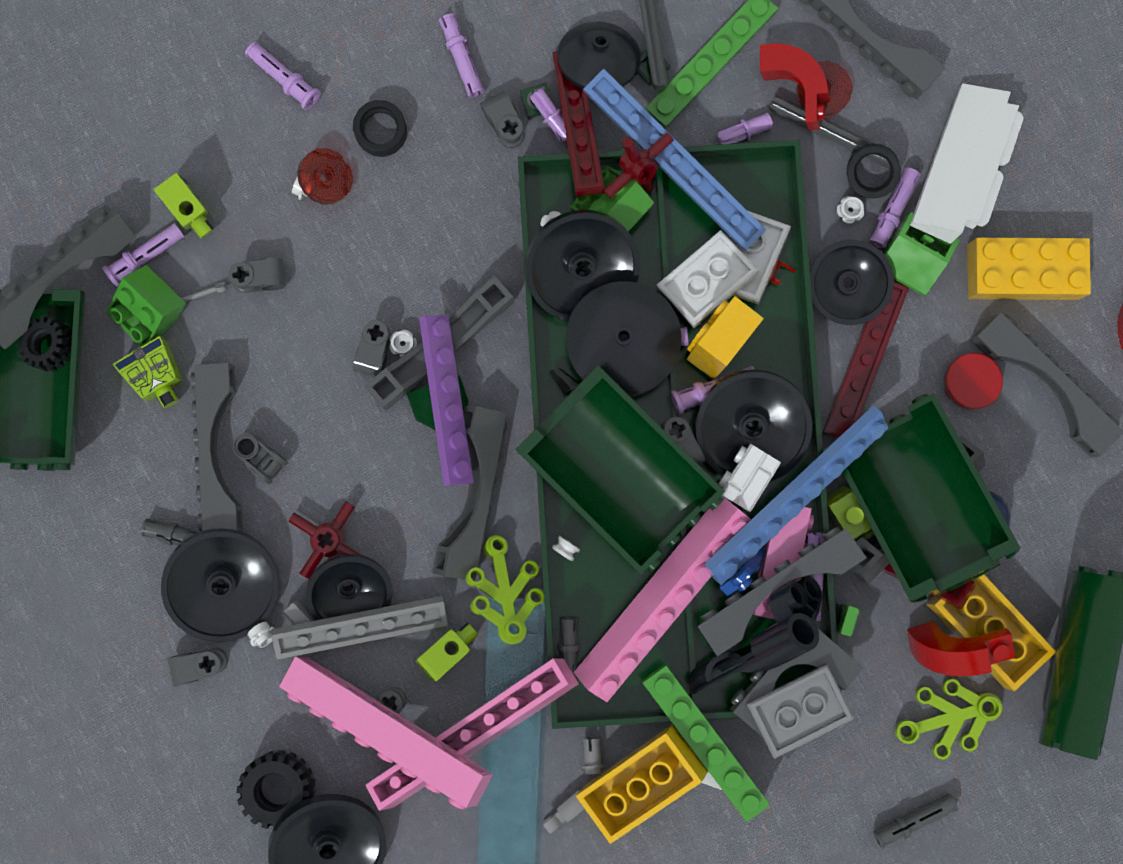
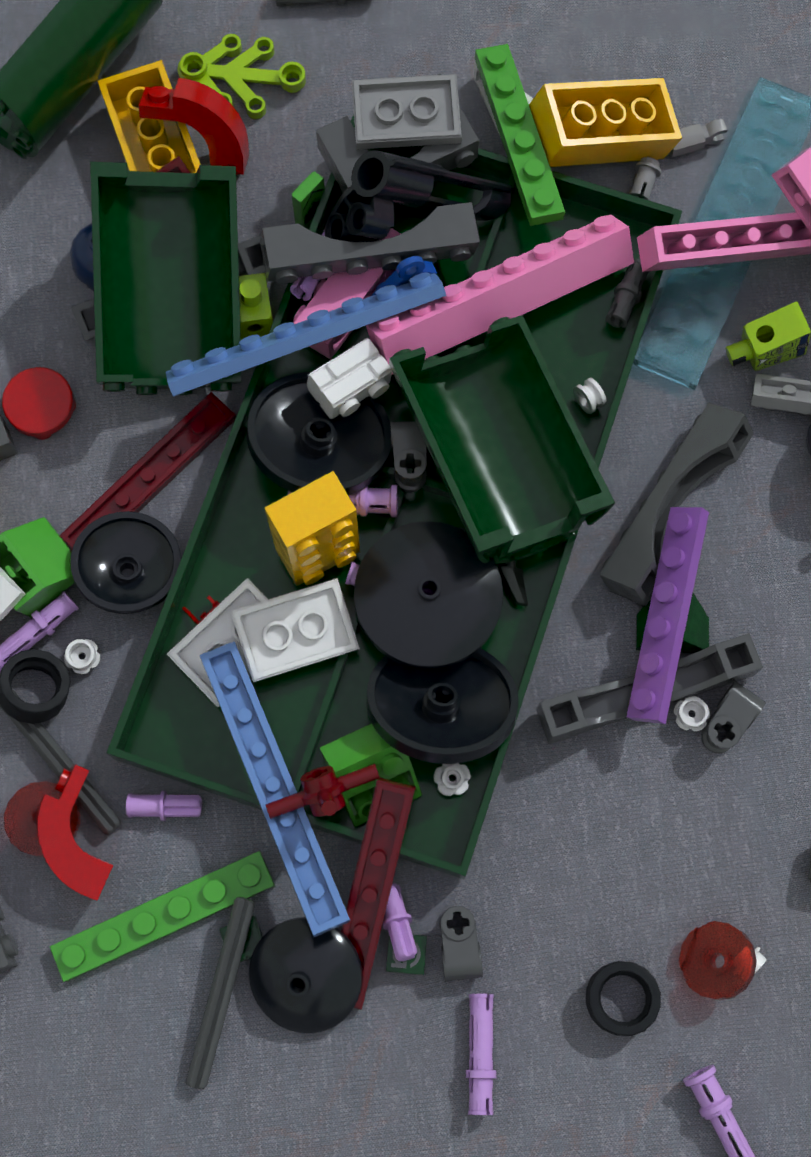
camera: 155 degrees left, 10 degrees down
(504, 593) = (678, 375): lime plant -> none

